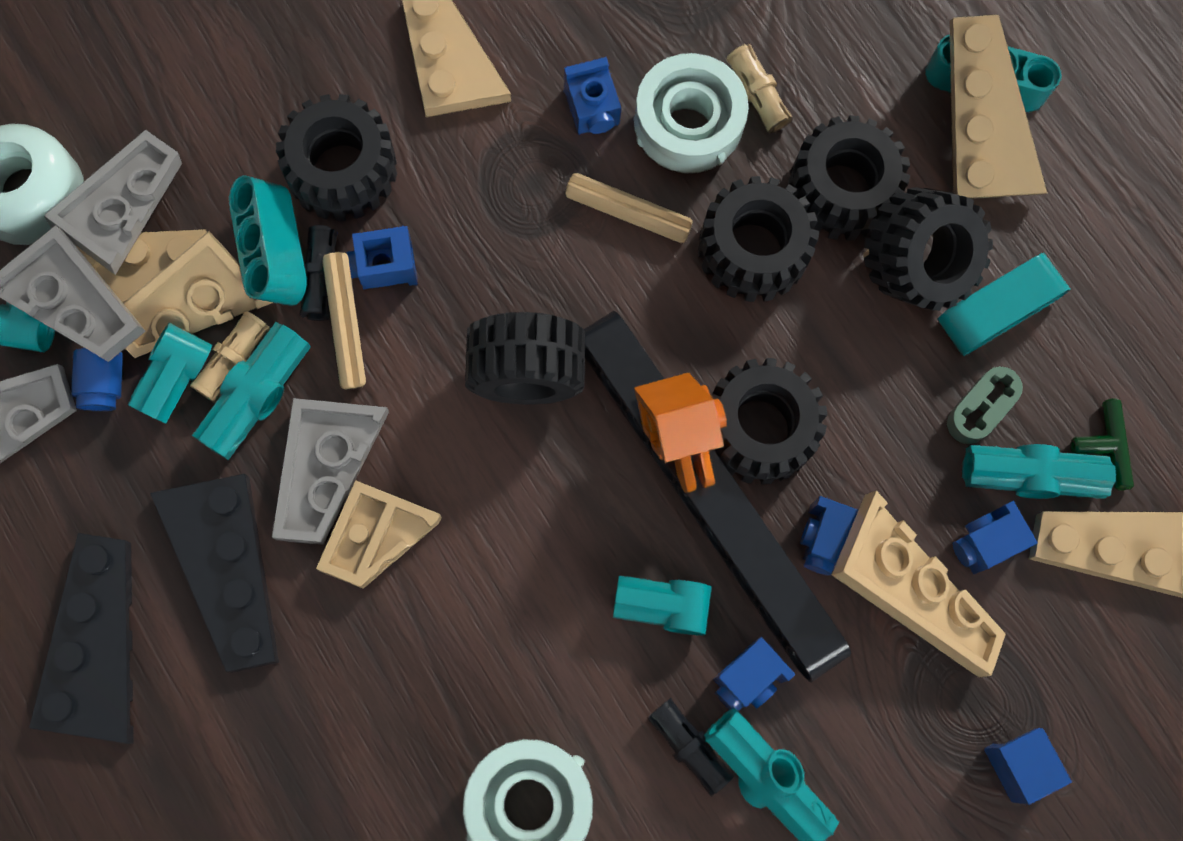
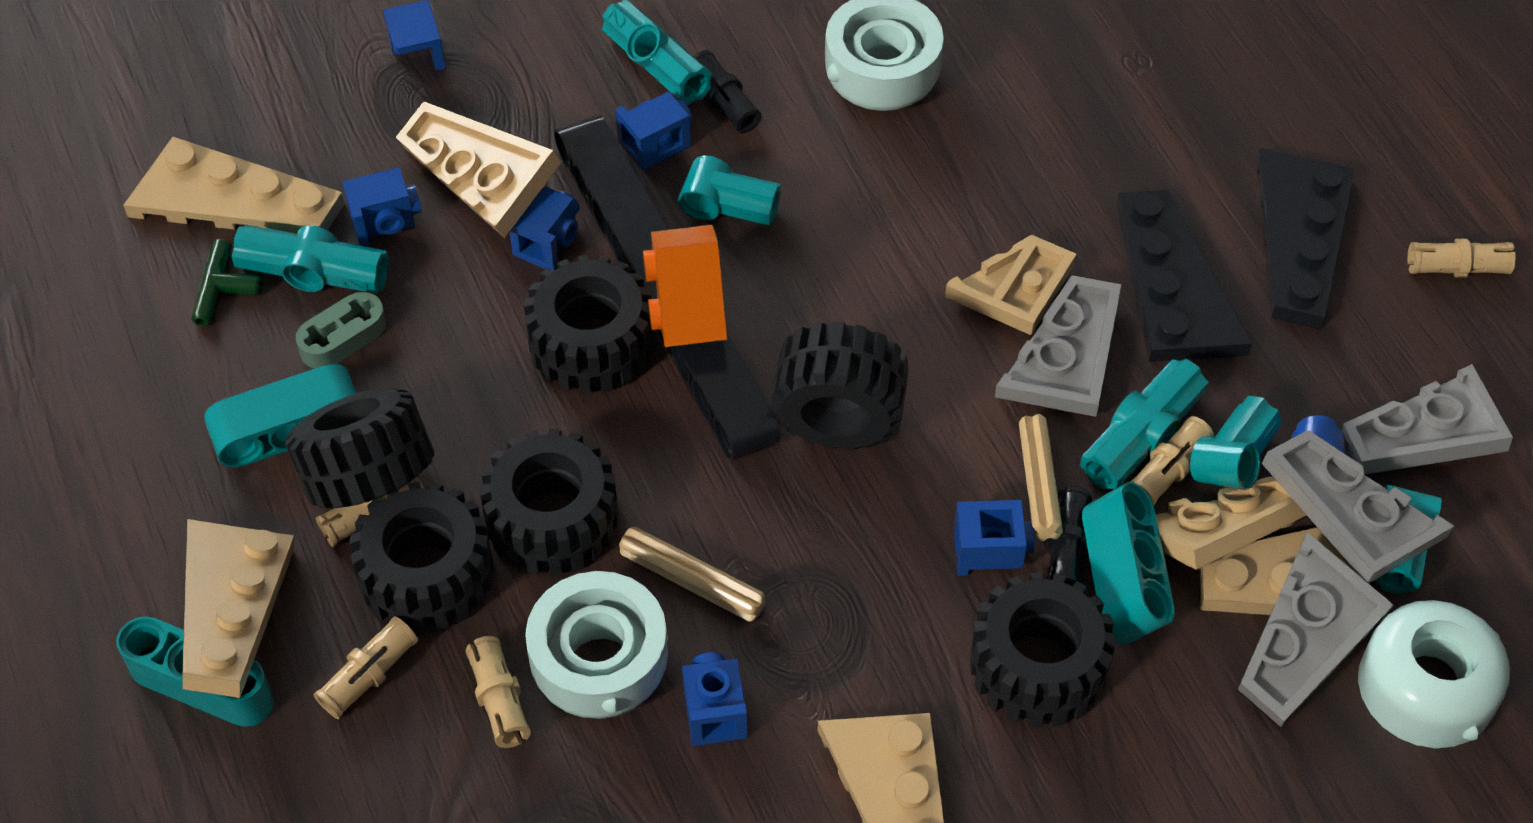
camera: 165 degrees left, 20 degrees down
(866, 94) = (392, 641): none -> tan pin

